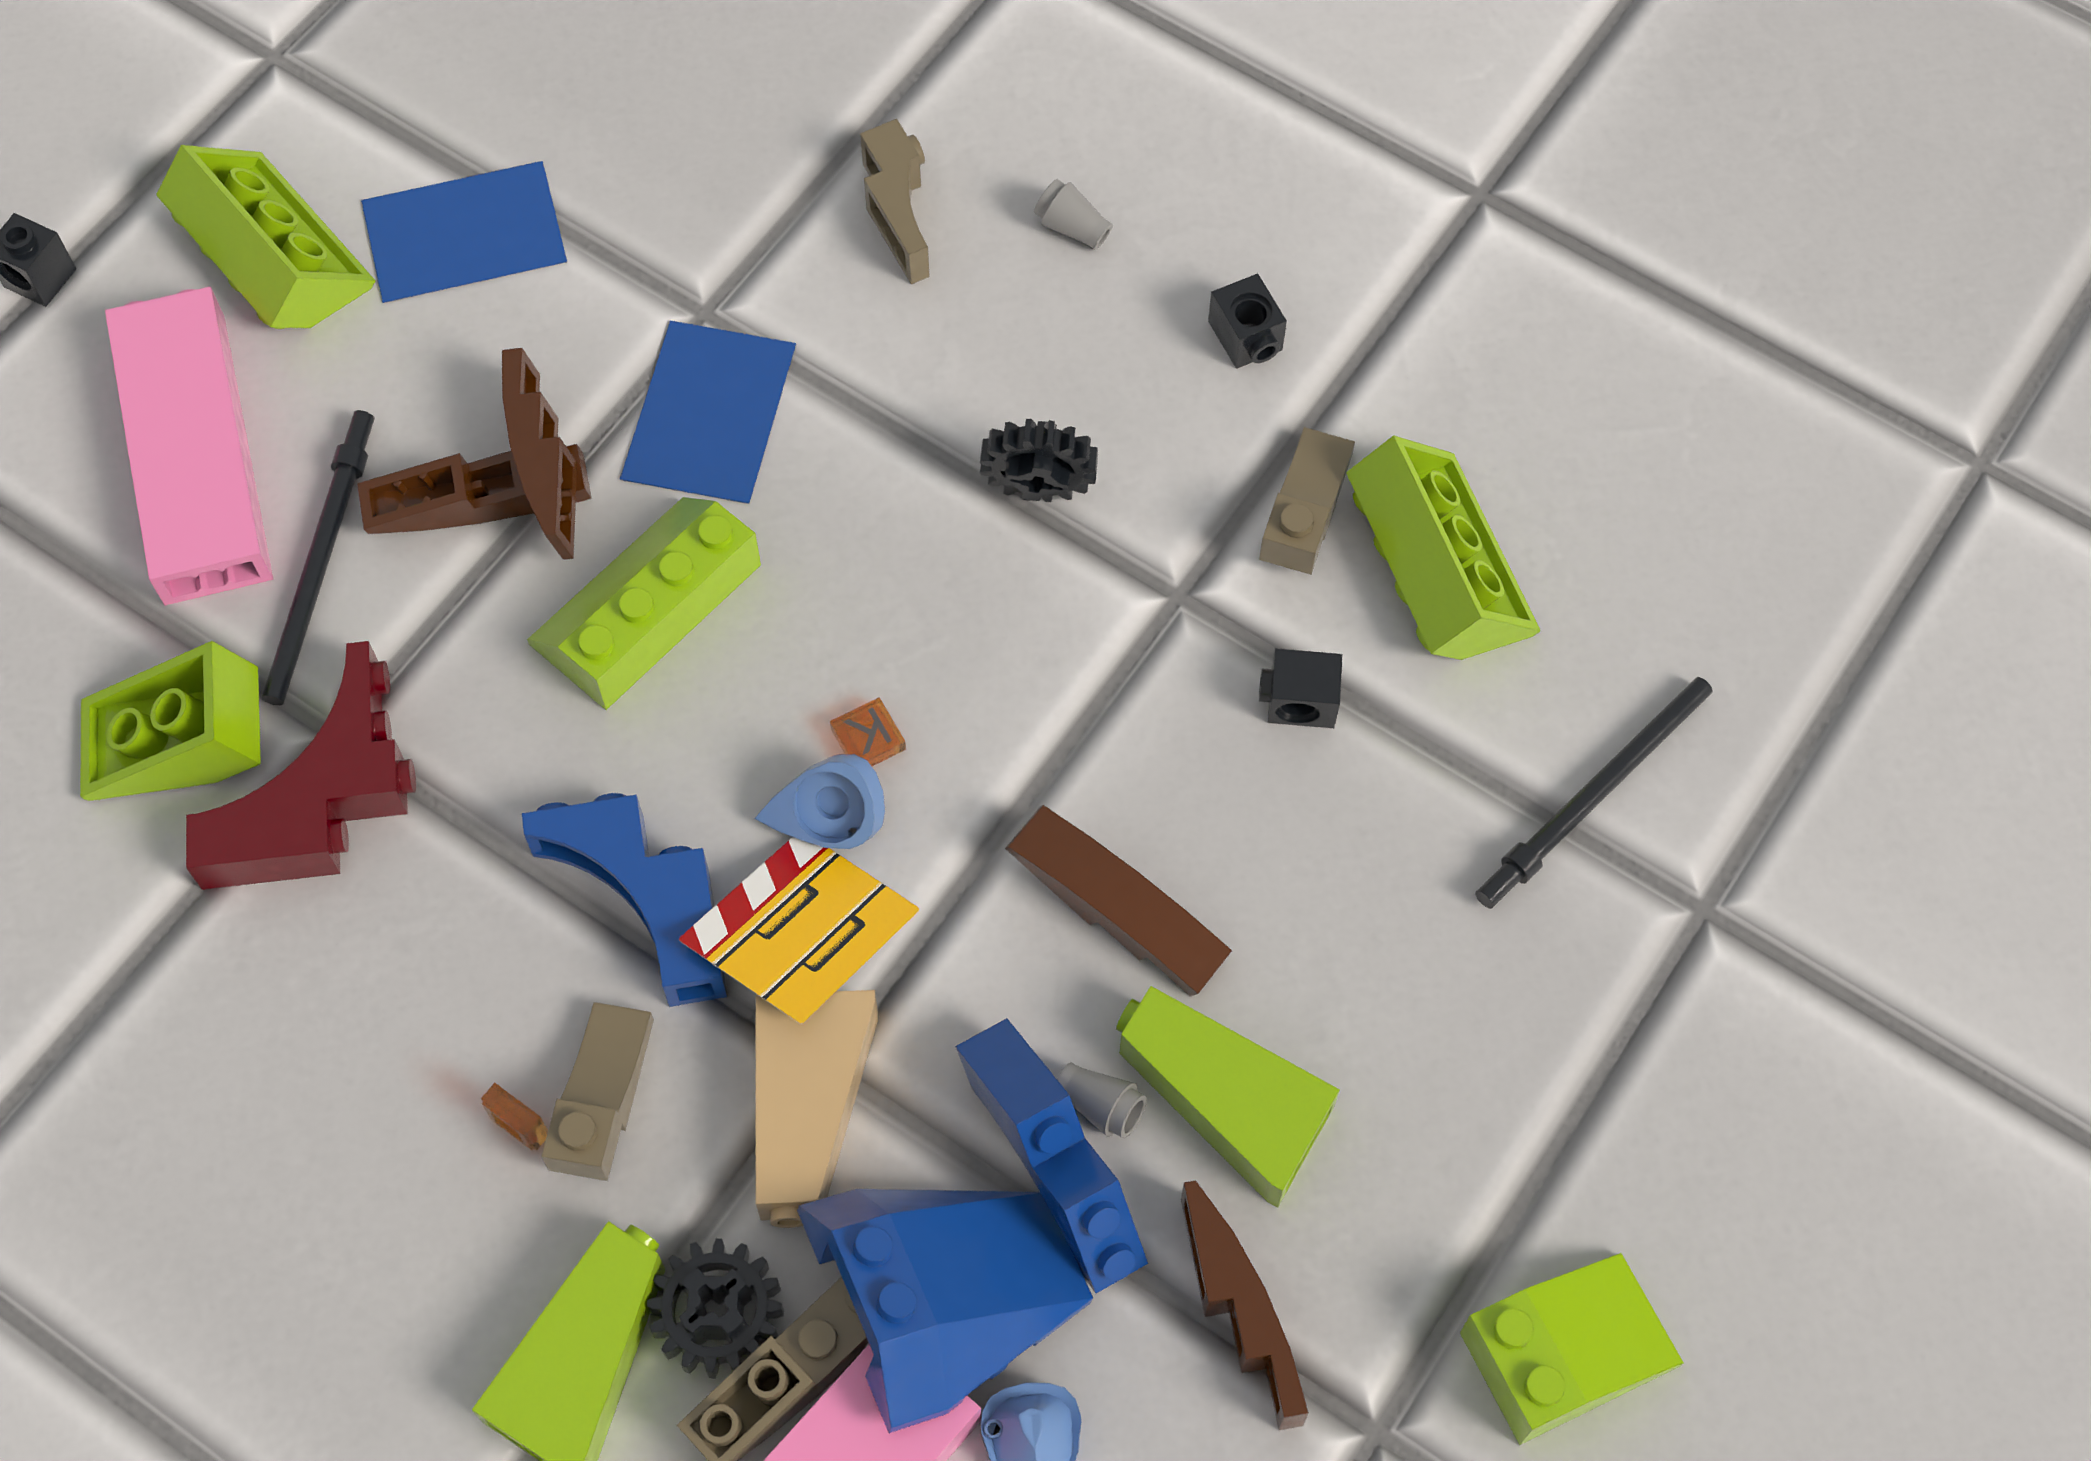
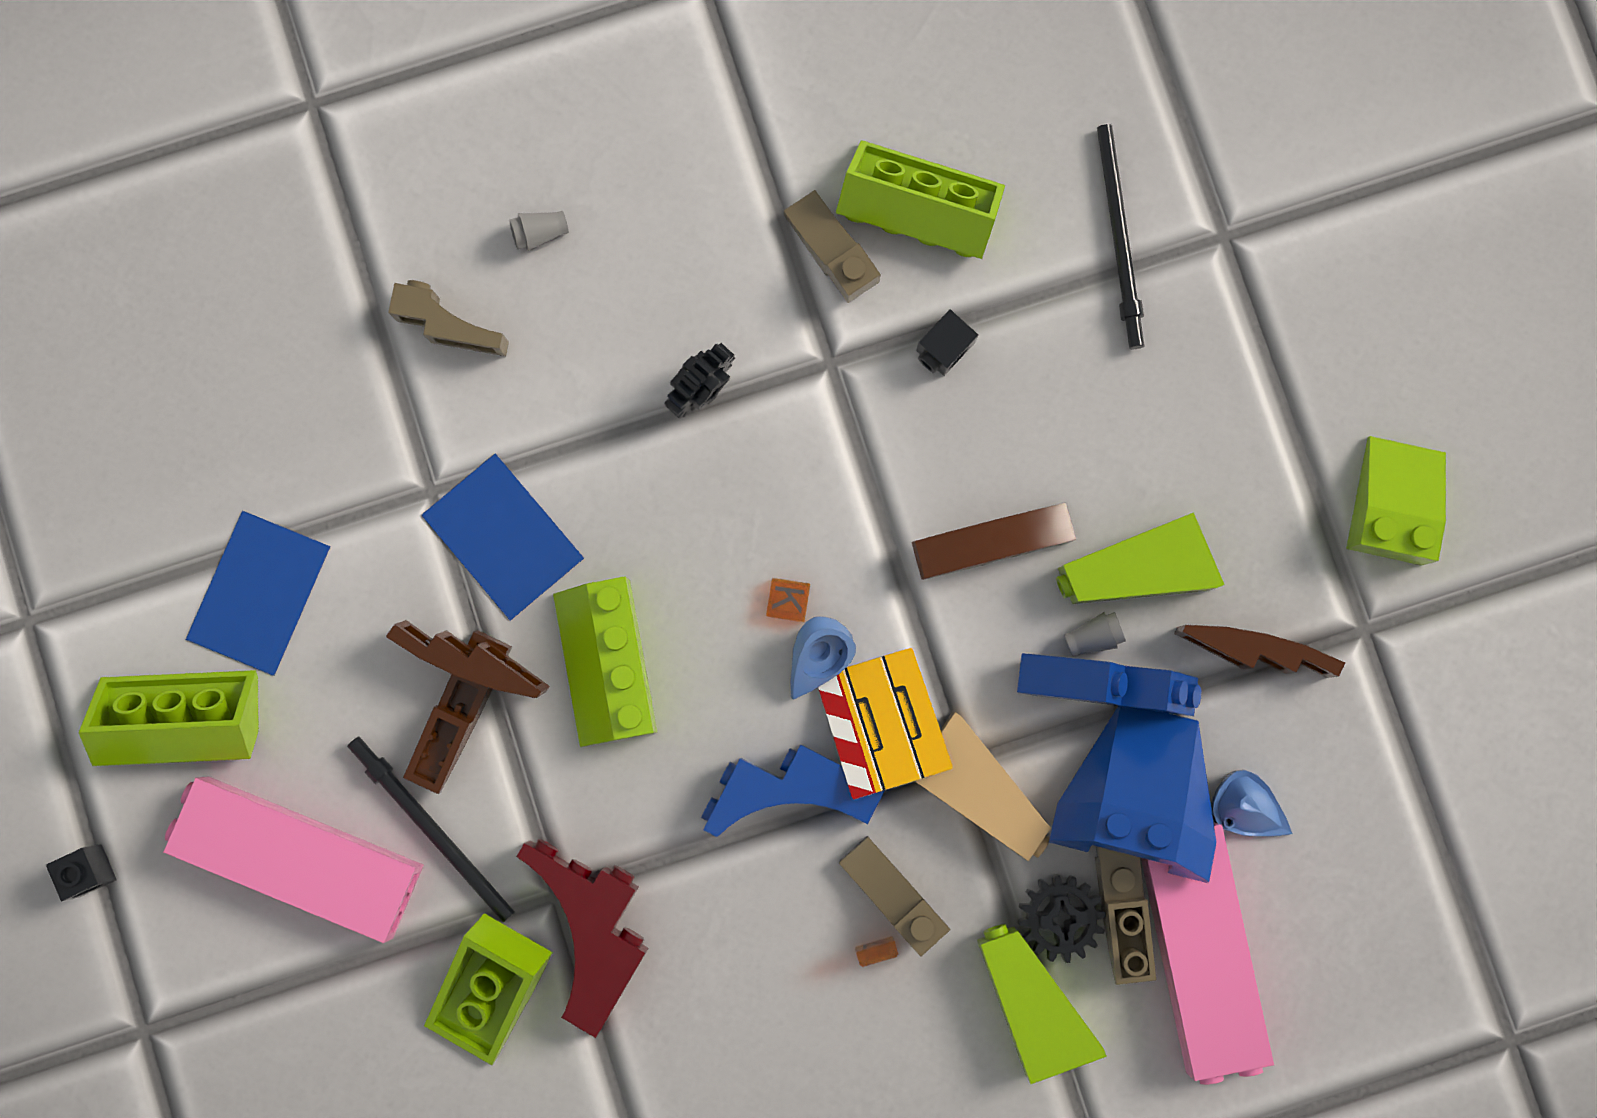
camera: 50 degrees left, 20 degrees up
(1247, 303) = (682, 173): black brick -> none

